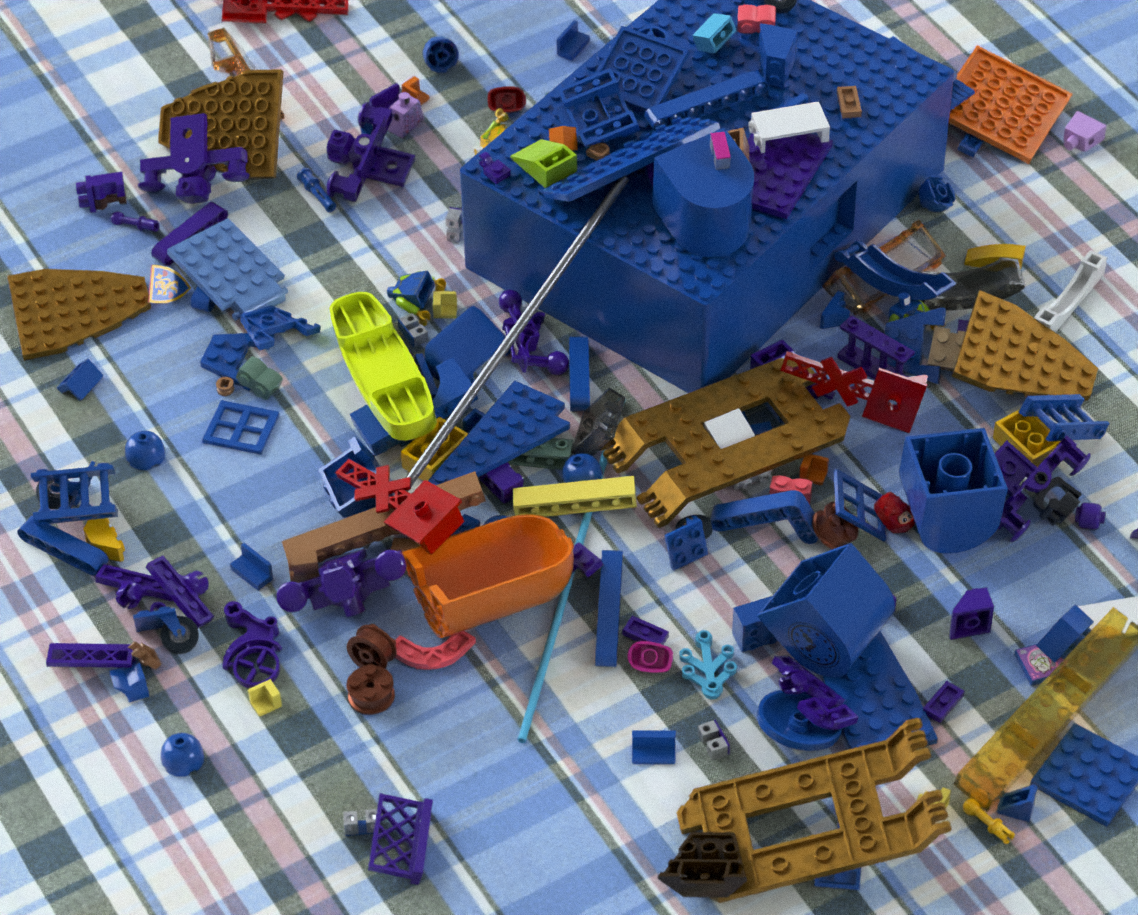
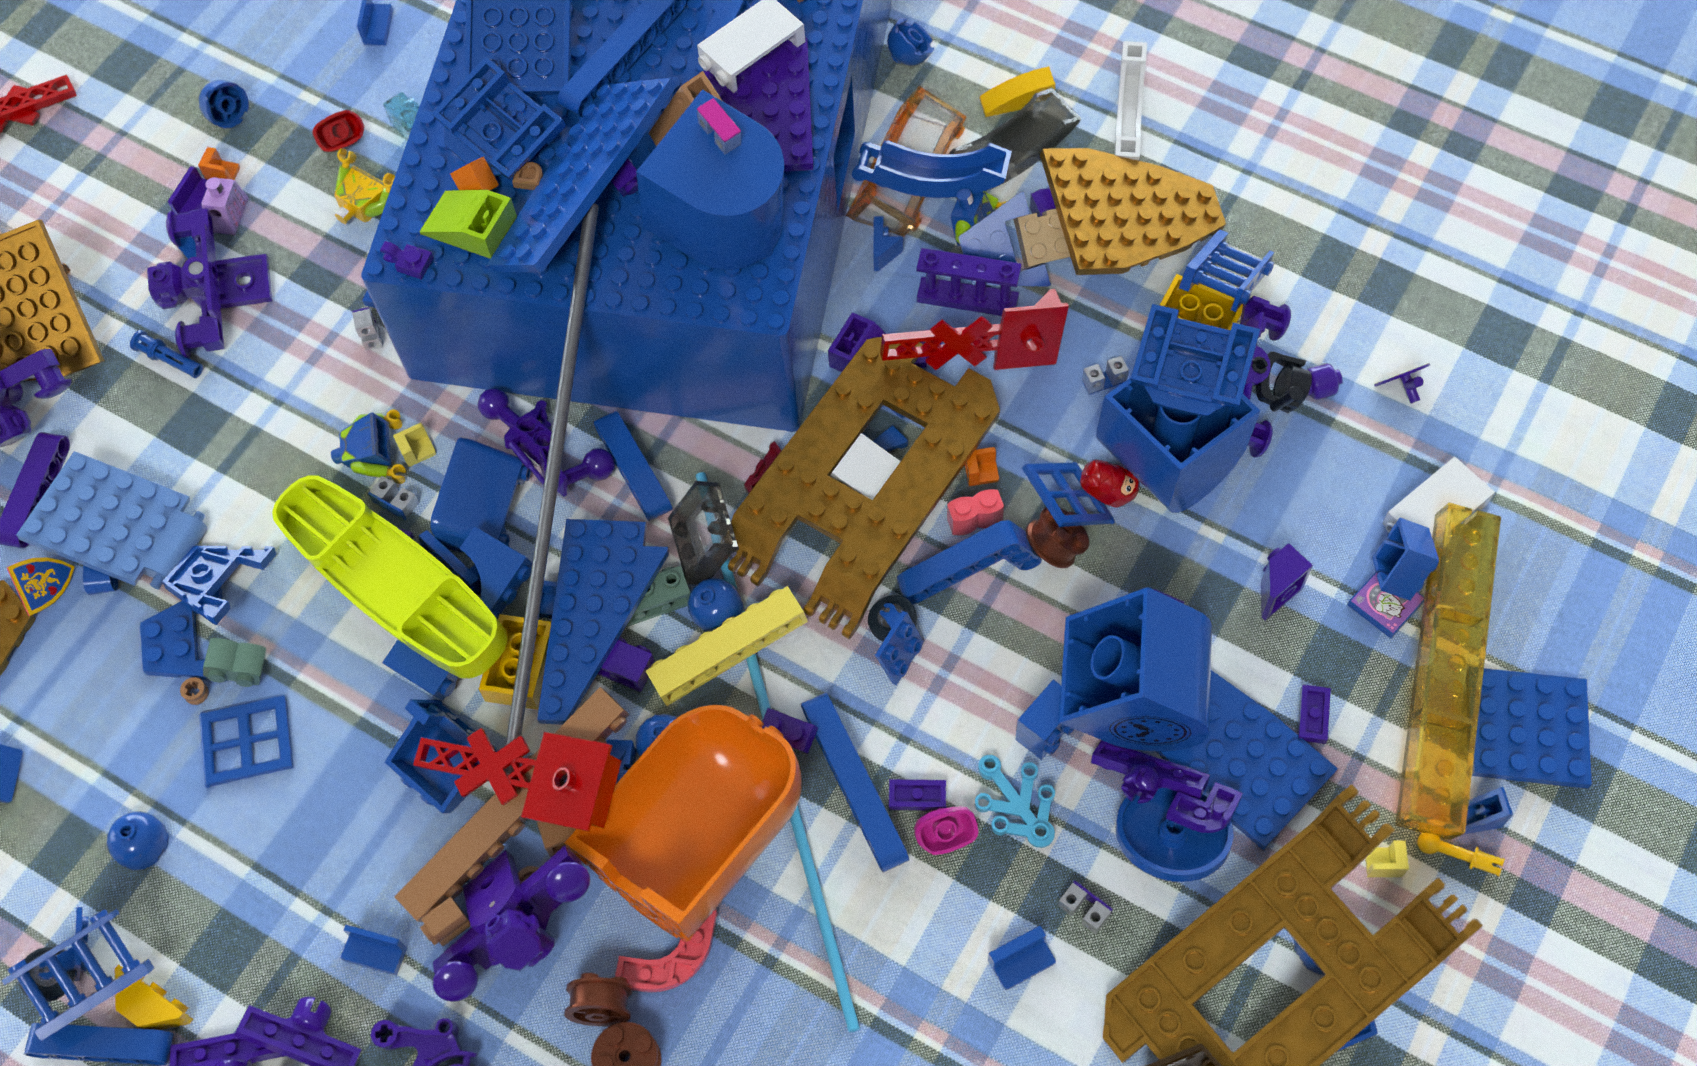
camera: 25 degrees left, 15 degrees up
(974, 439) = (1193, 363): none -> blue slope

